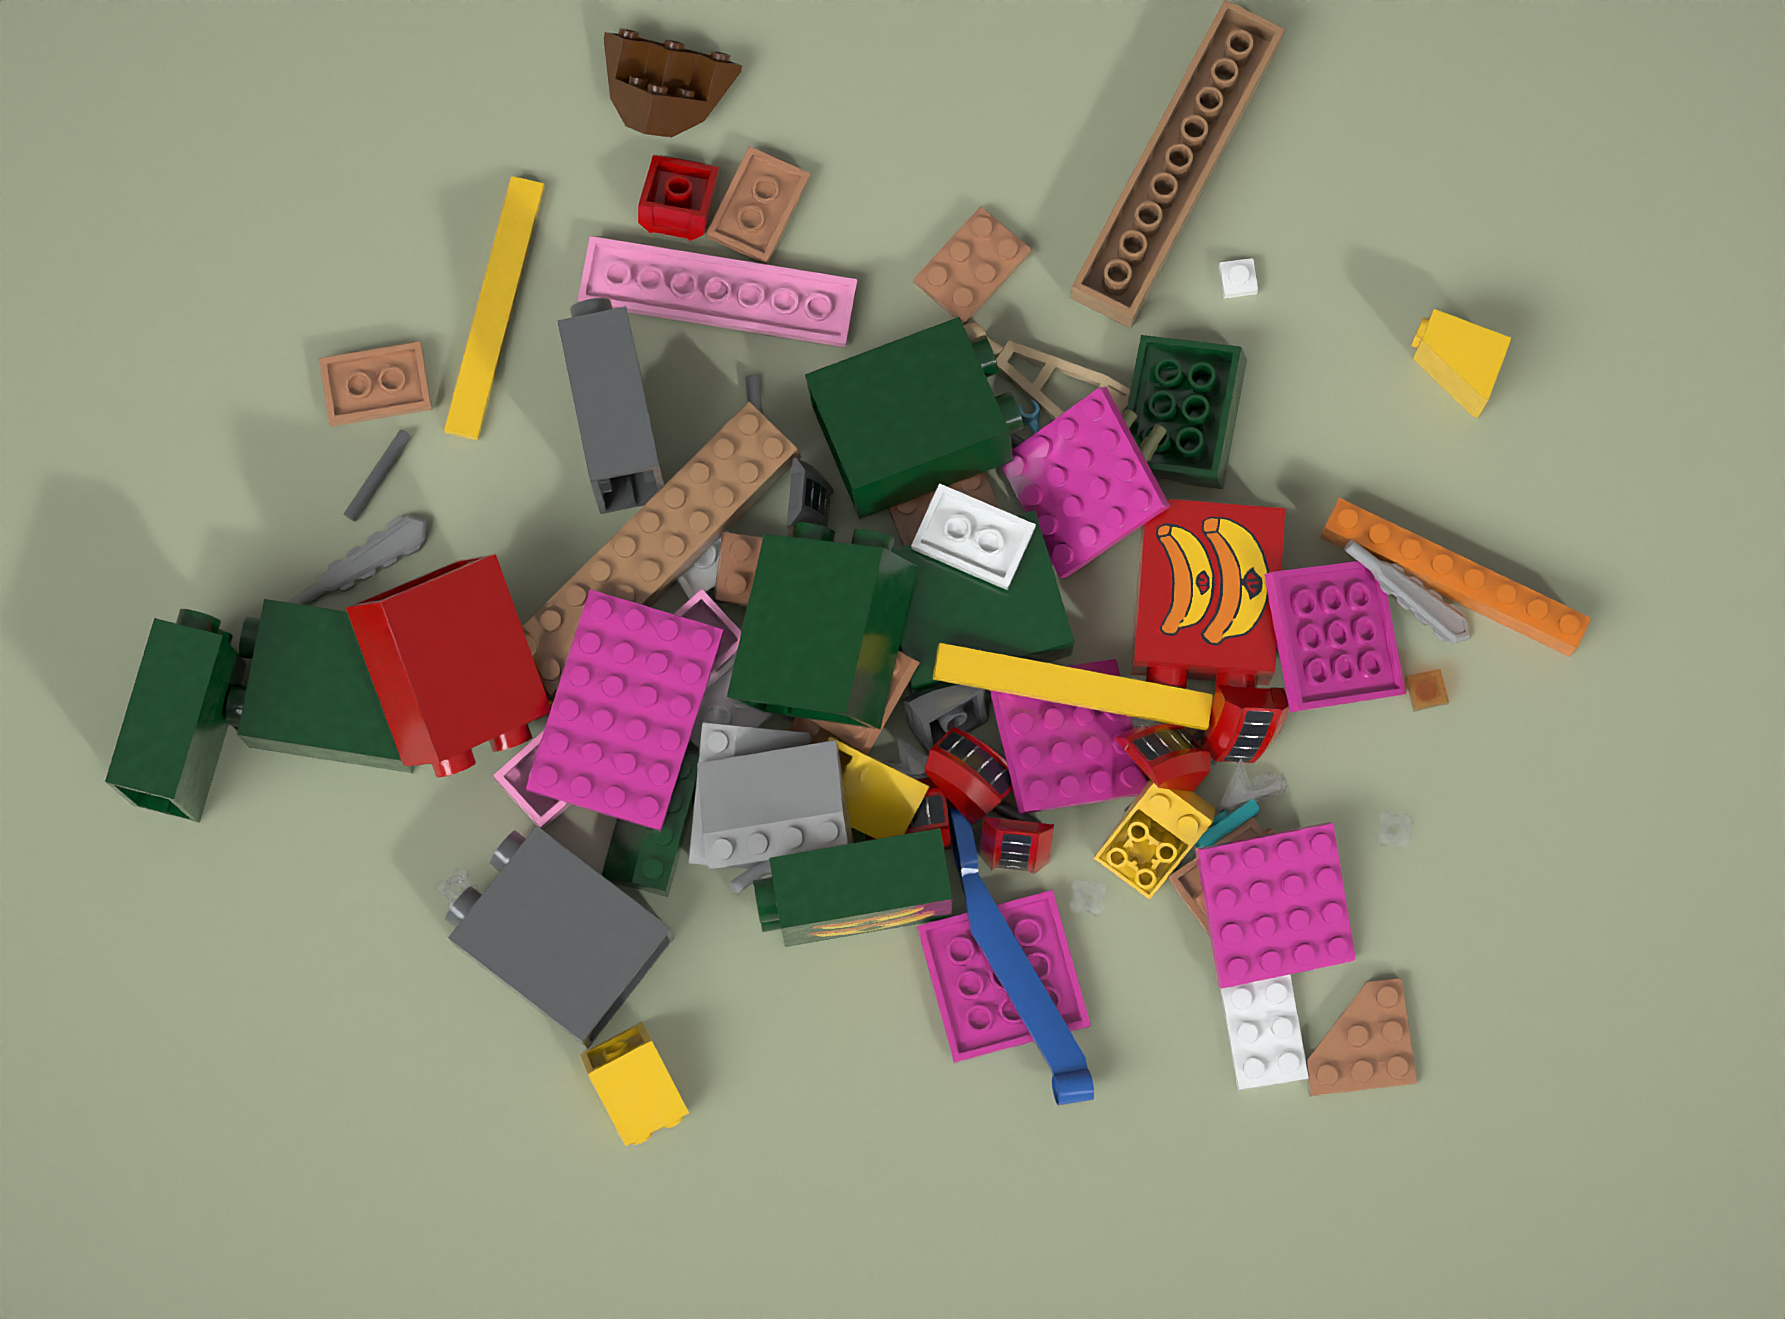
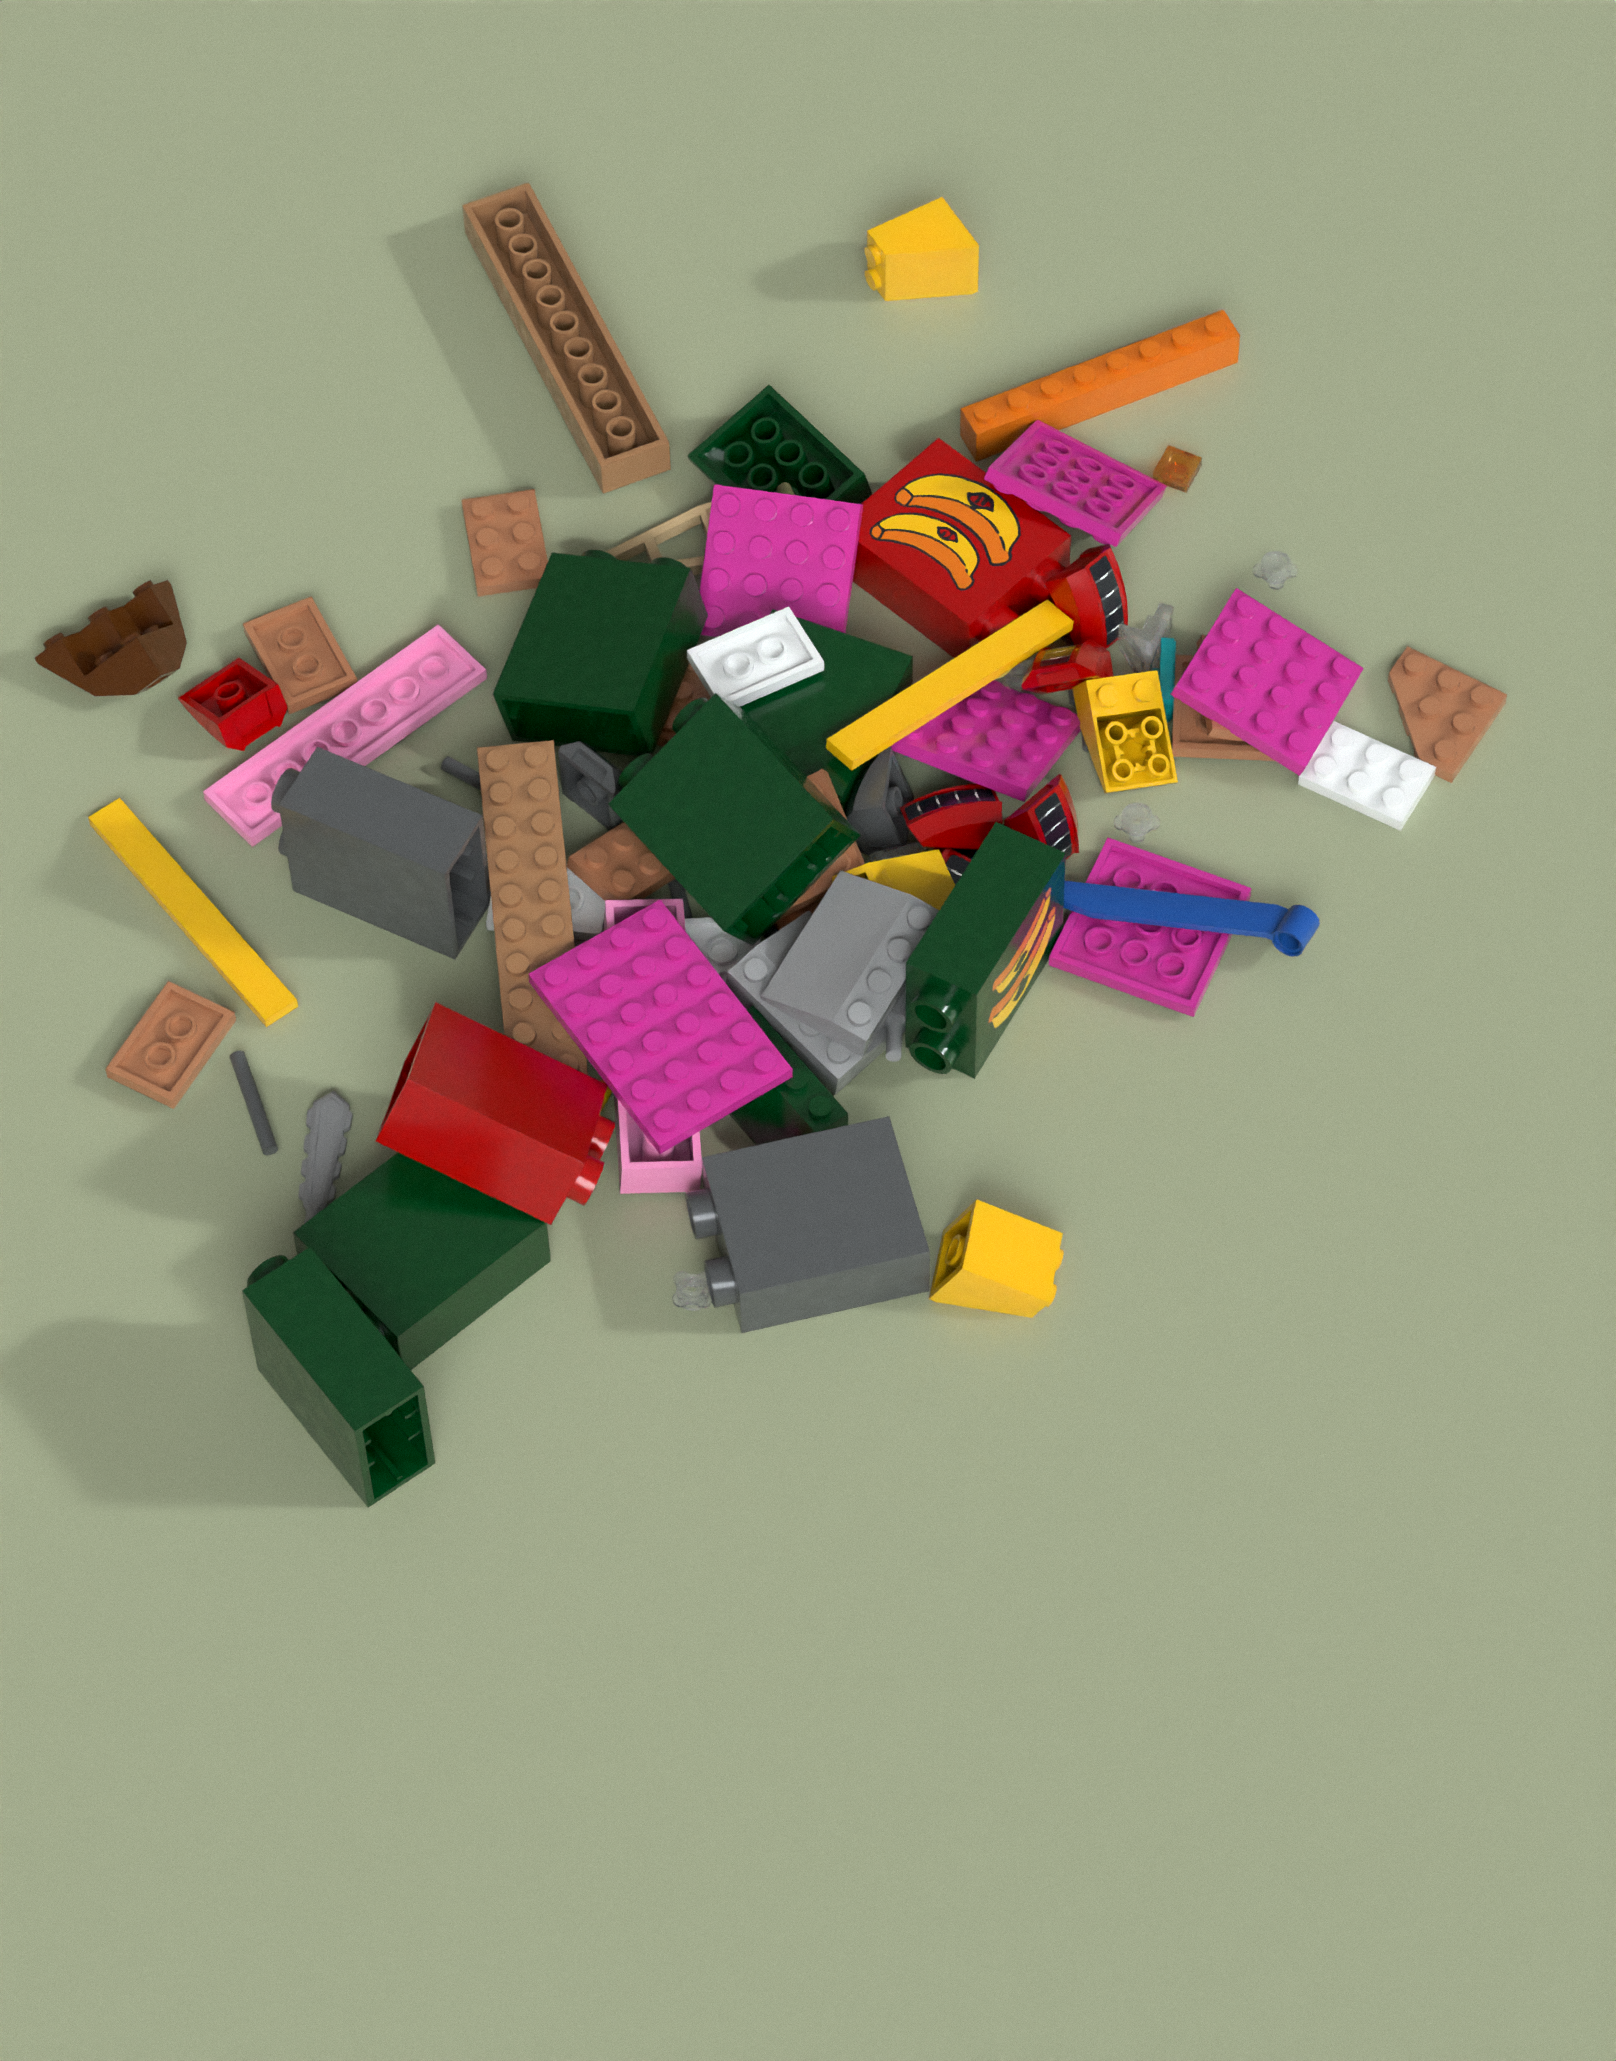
camera: 50 degrees left, 20 degrees down
(1238, 278) = (701, 368): white plate -> none
(1428, 606) = (1092, 419): light grey sword -> none

